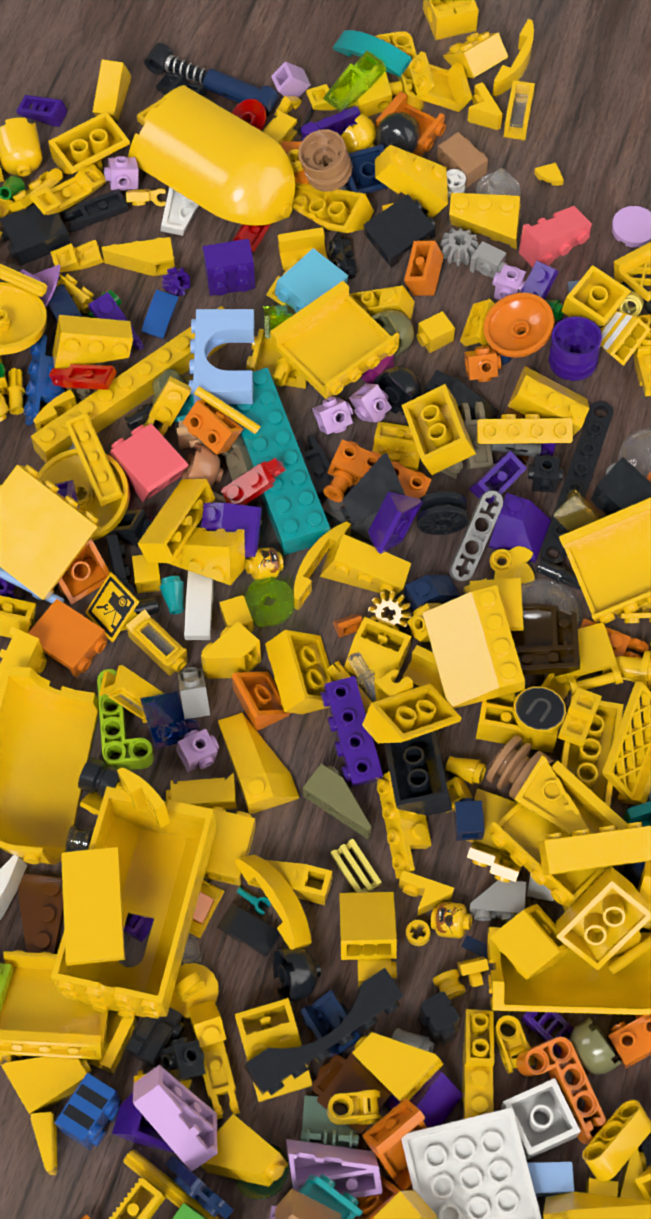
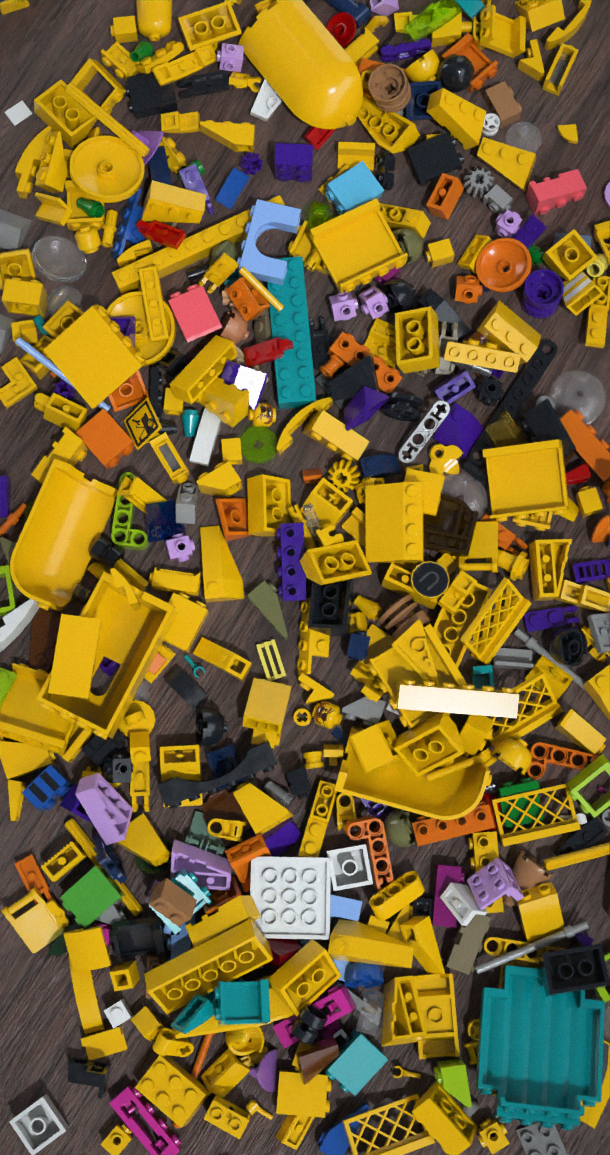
camera: 15 degrees right, 15 degrees up
(294, 926) = (211, 672): yellow slope -> none

